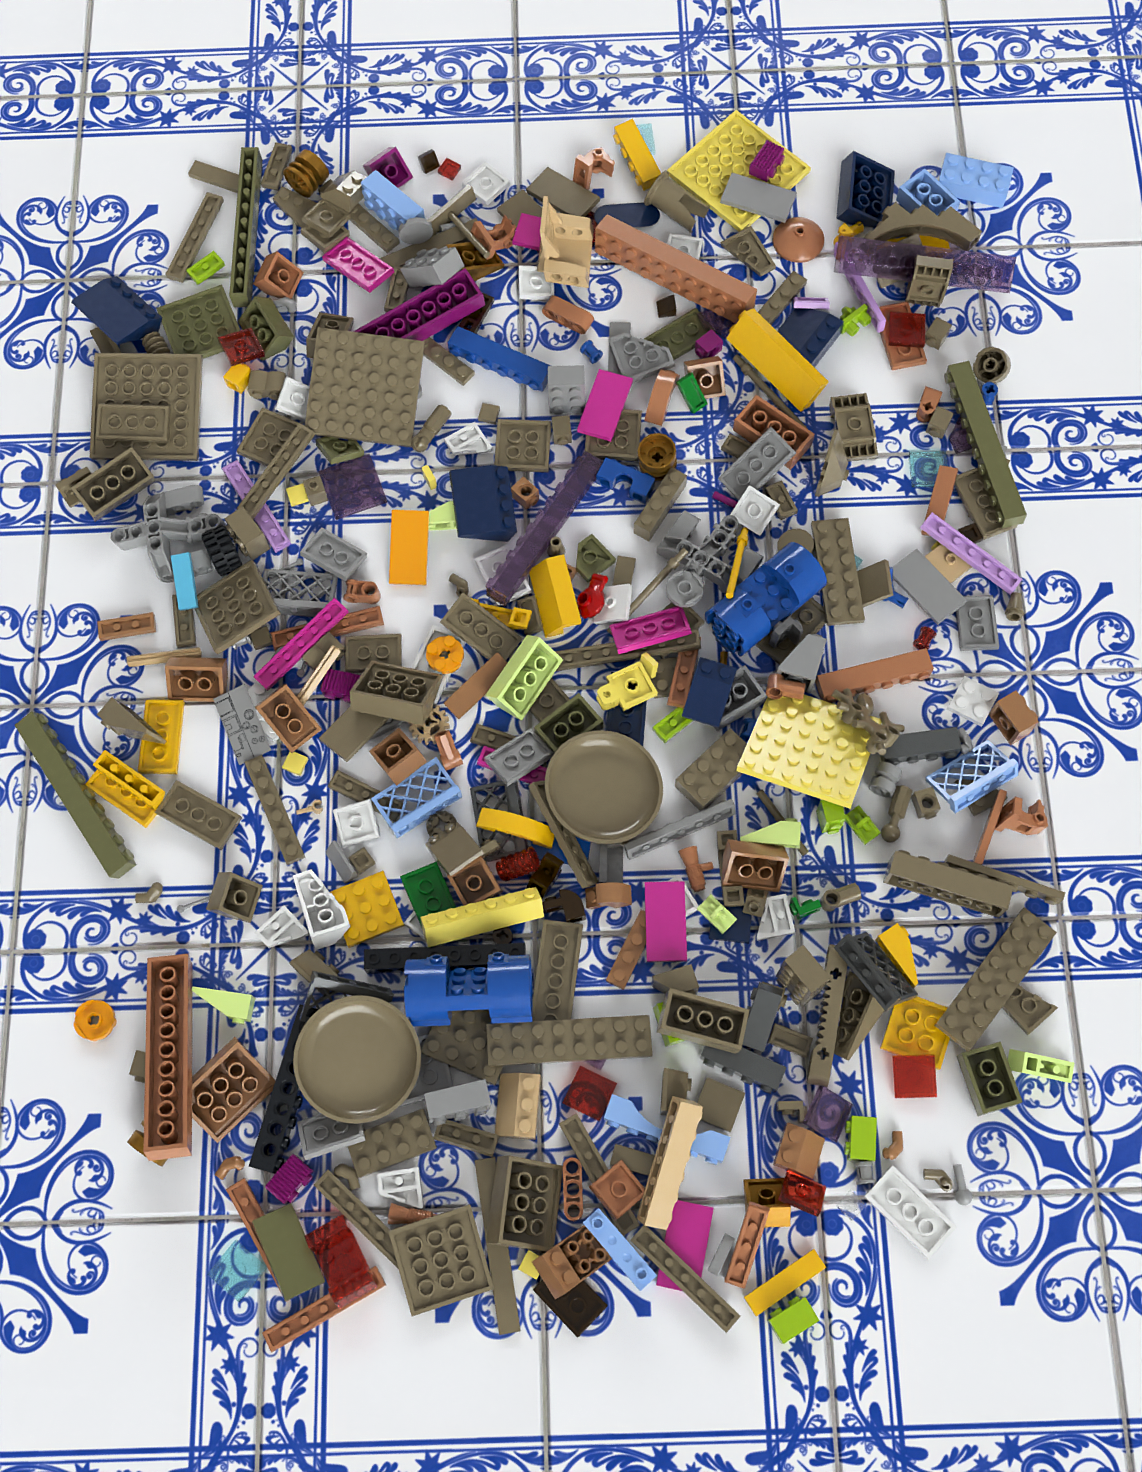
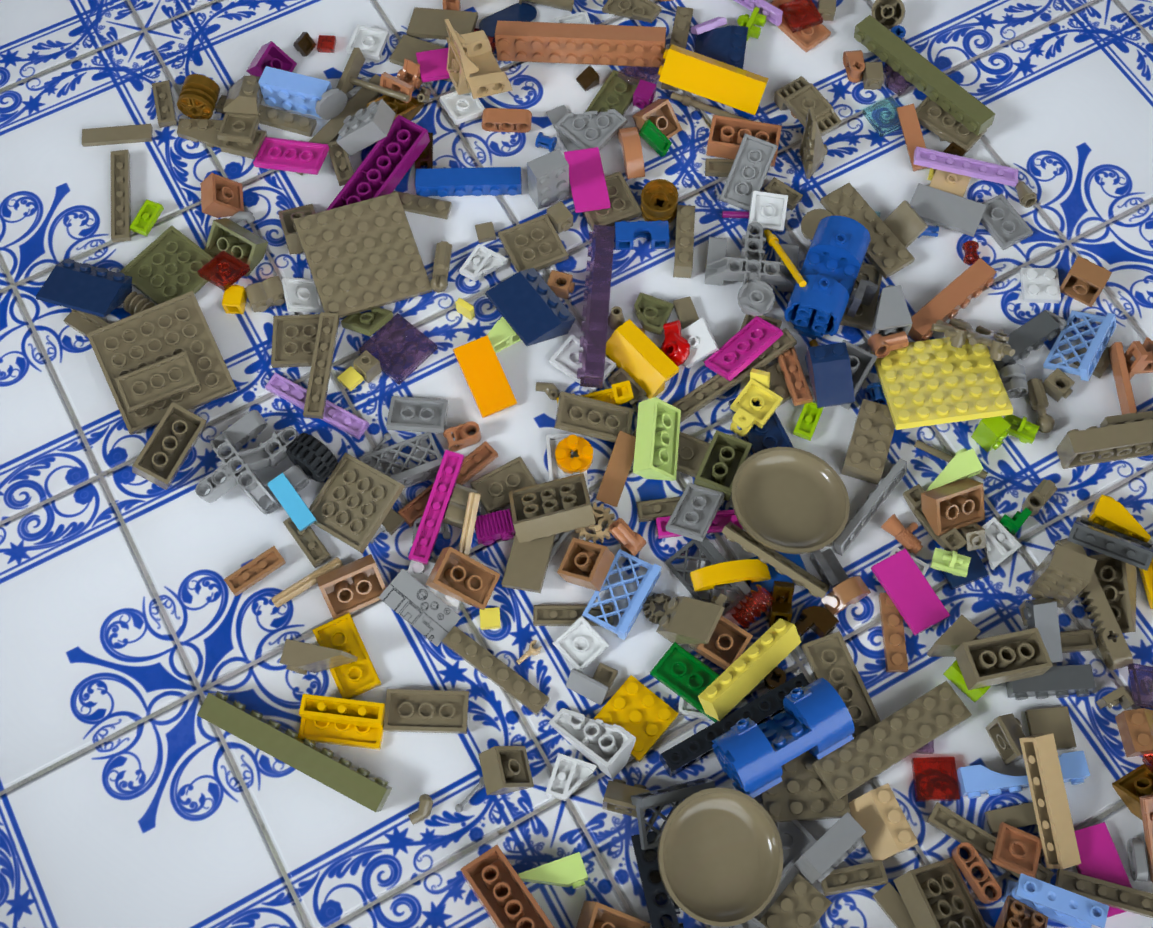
camera: 30 degrees left, 5 degrees down
(65, 485) = (123, 468): dark tan bracket -> none
(246, 227) = (167, 166): olive brick -> none
(246, 534) = (327, 429): dark tan brick -> none
(508, 259) = (424, 95): none -> dark tan arm
(672, 564) = (732, 282): dark tan bar -> none

